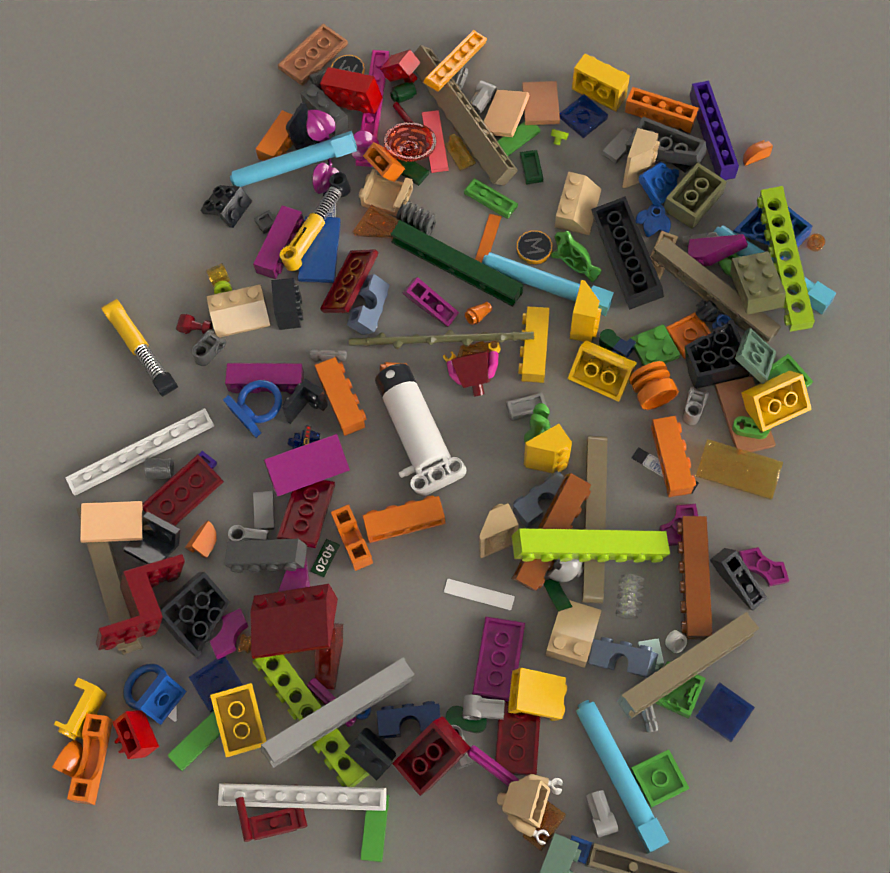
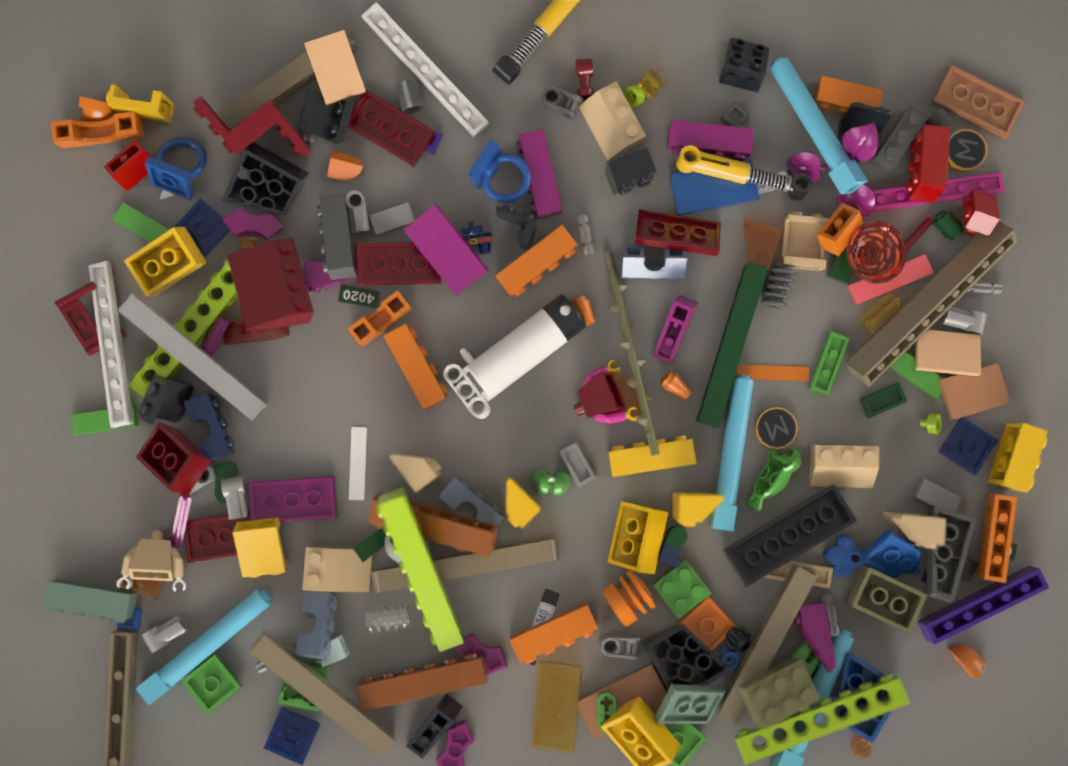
camera: 70 degrees right, 20 degrees up
(455, 60) = (1003, 276): light orange tile -> none
(676, 641) = (351, 675): white tile -> none

